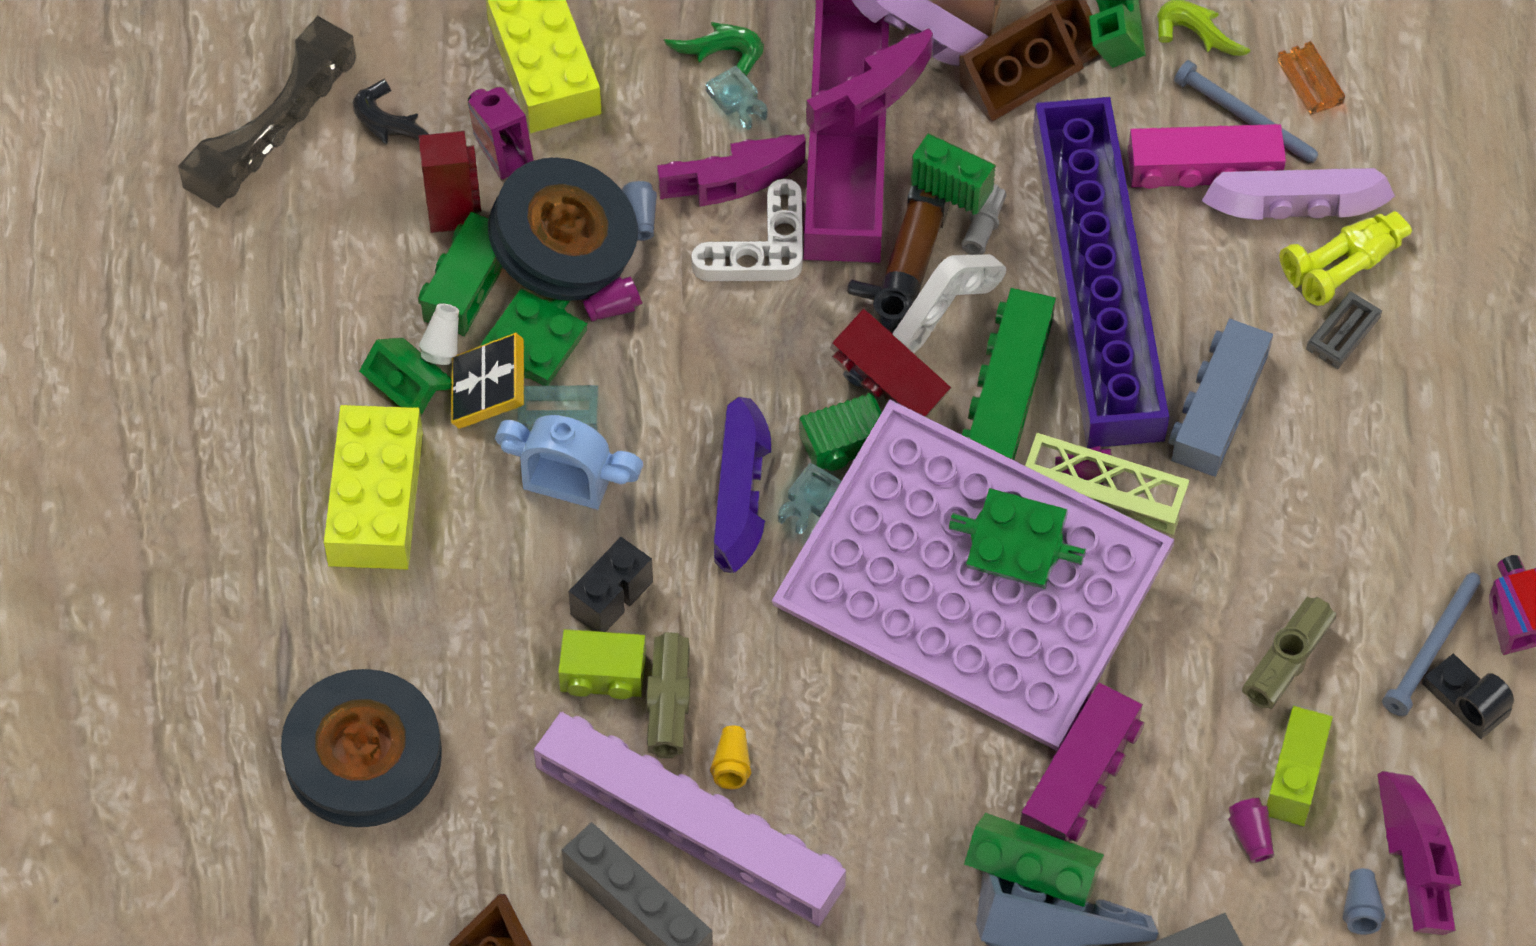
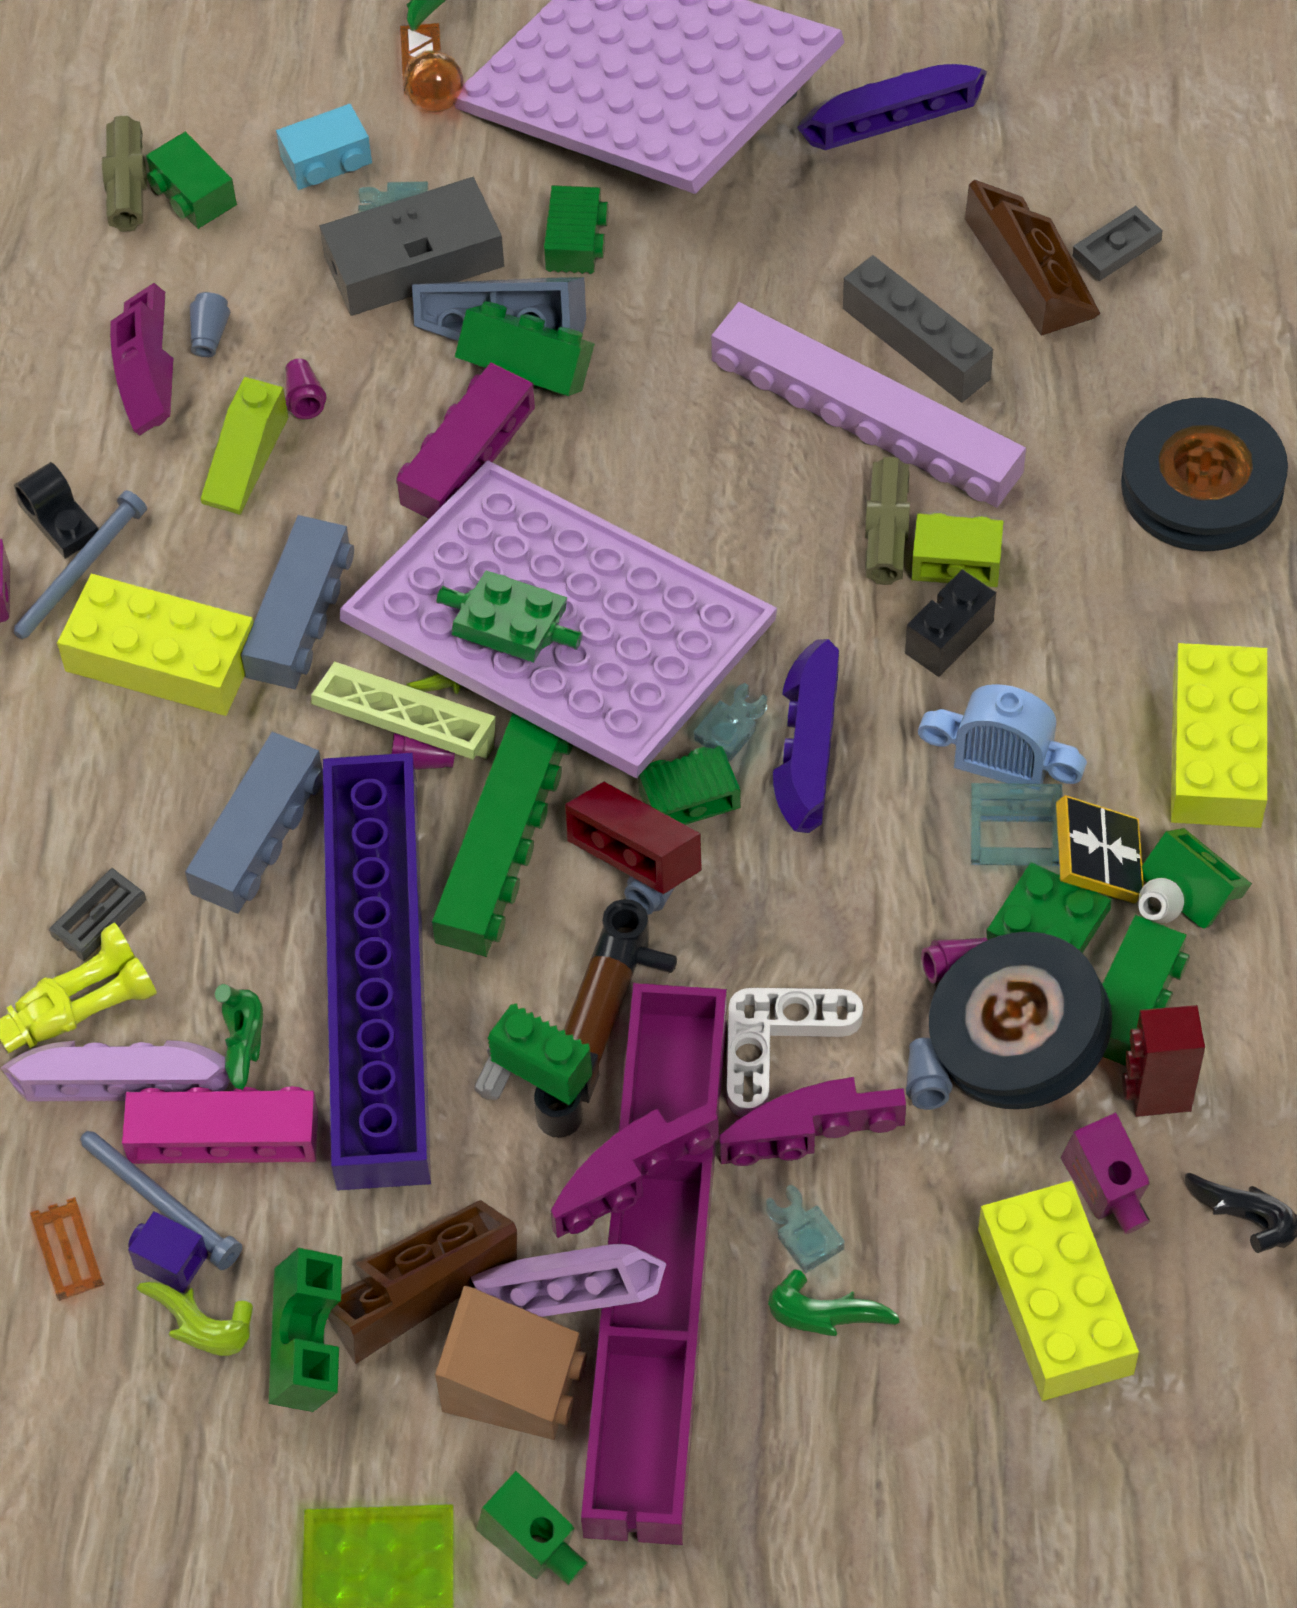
camera: 175 degrees left, 0 degrees up
(731, 759) = (822, 460): yellow cone -> none
(952, 277) = (555, 913): white beam -> none
(1202, 241) = (244, 1020): none -> green piece
(1219, 602) = (297, 602): none -> sand blue brick
(1232, 66) = (167, 1251): none -> dark purple brick
(1279, 669) = (221, 562): olive piece -> none
(1341, 552) = (156, 644): none -> neon yellow brick

